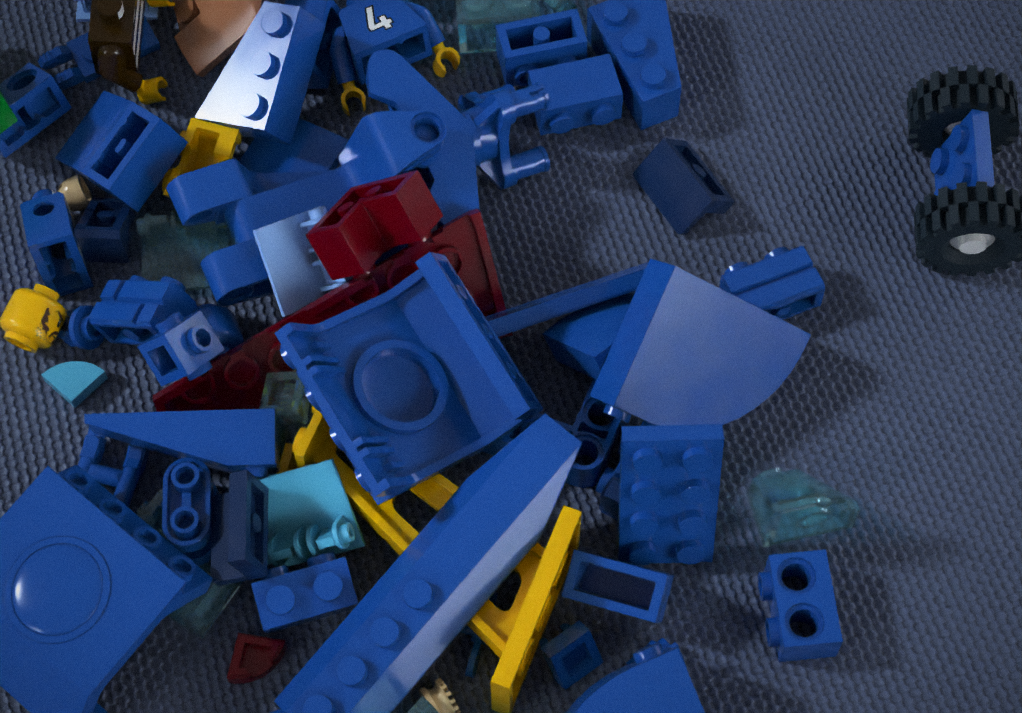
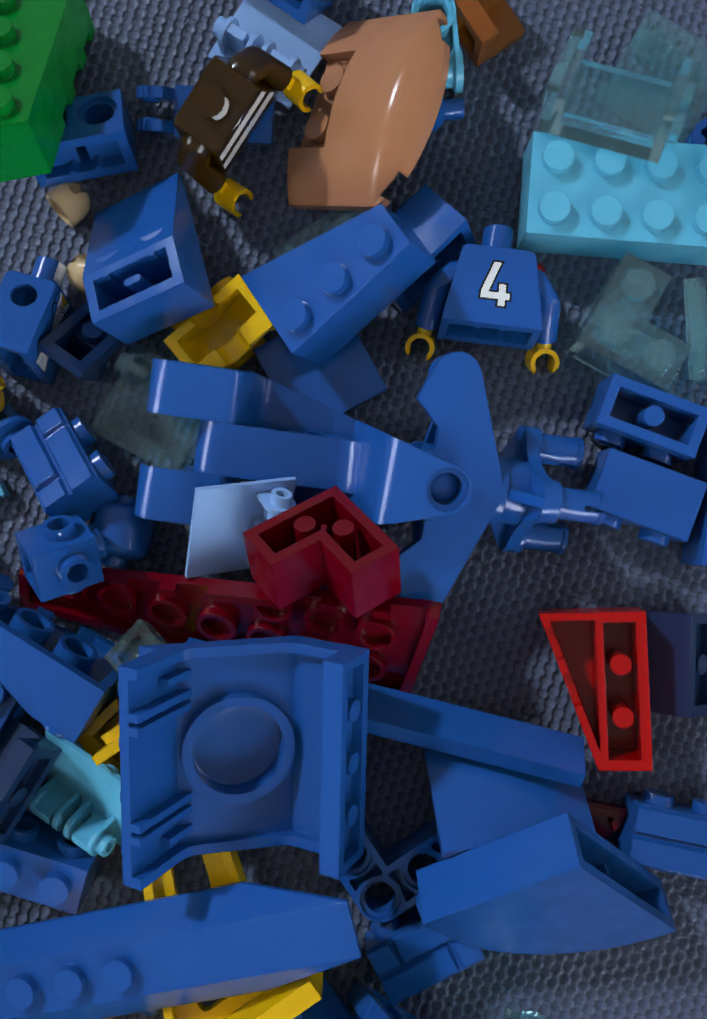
camera: 35 degrees right, 25 degrees up
(31, 160) = (69, 202): none -> tan hinge
(633, 213) = (607, 677): none -> red wedge

